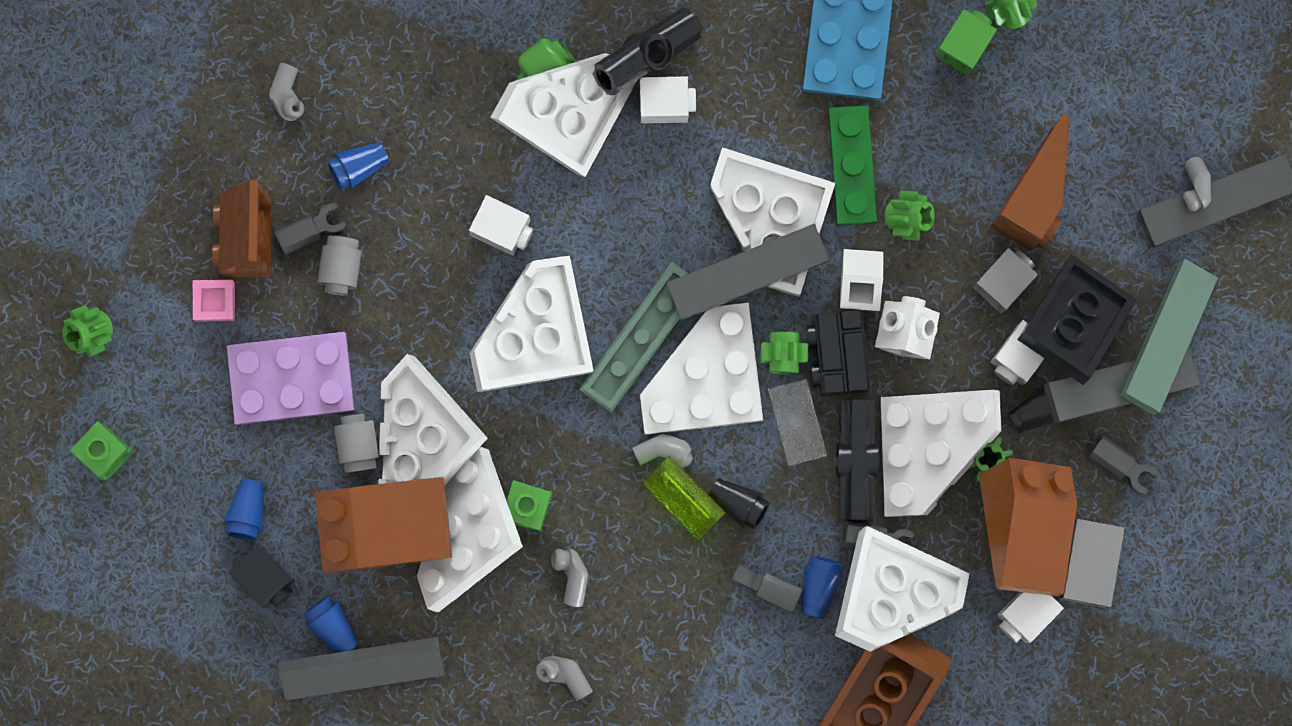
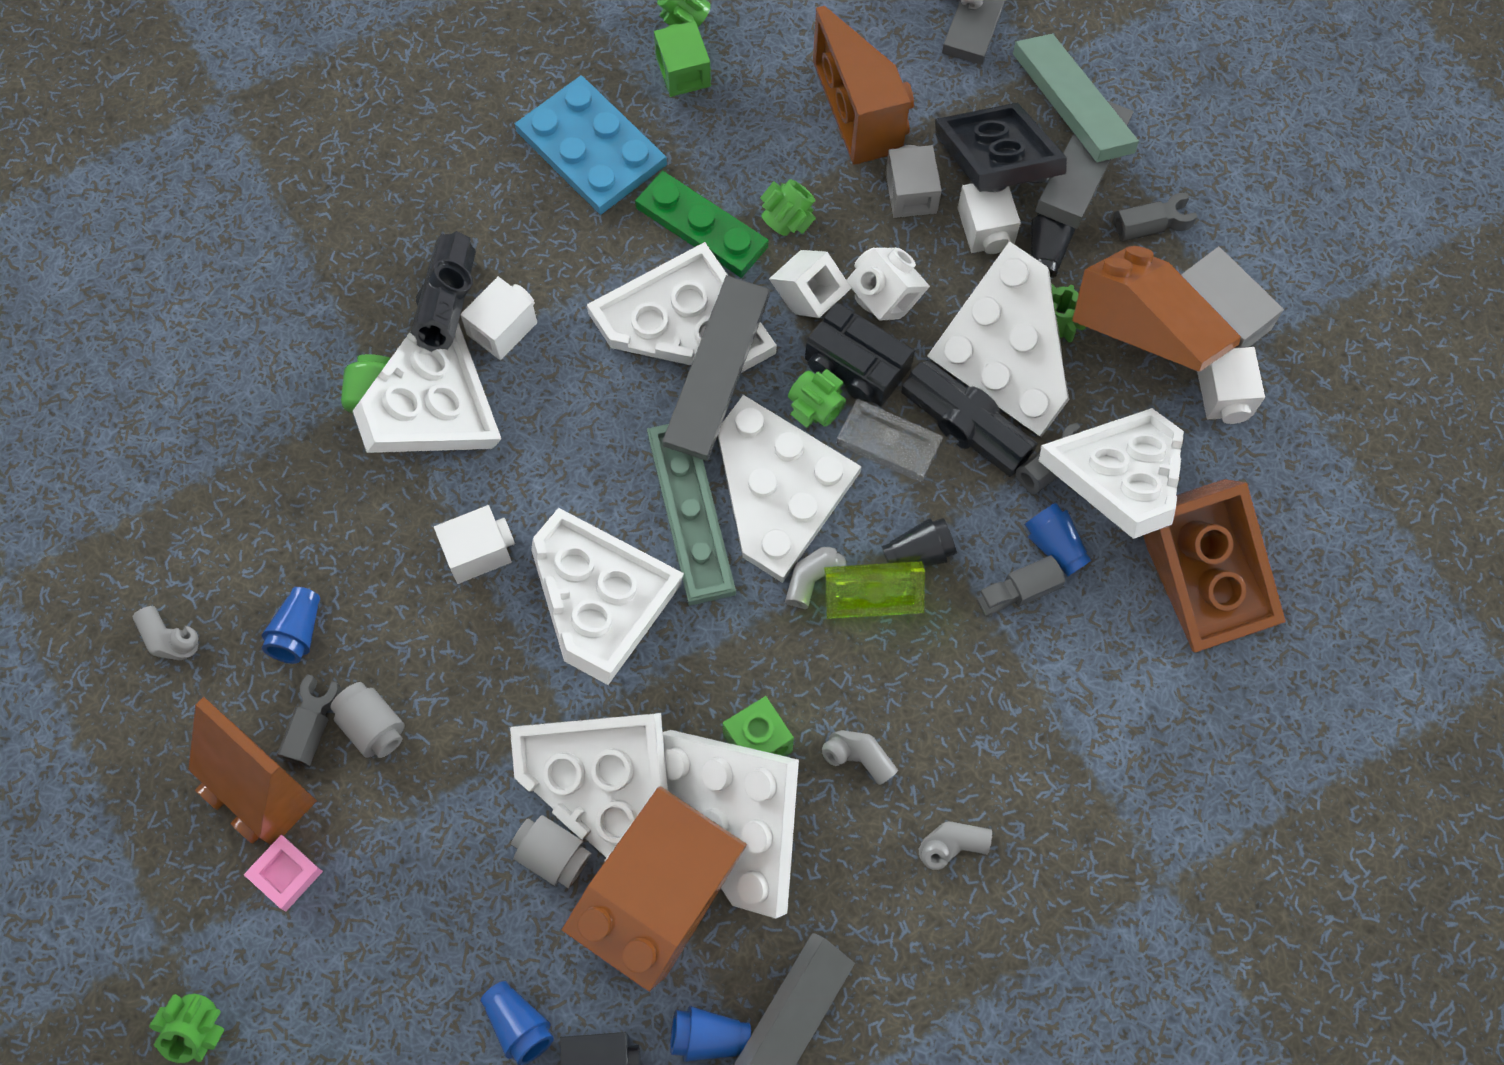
camera: 45 degrees left, 15 degrees down
(290, 378) = (428, 864): lavender plate -> none

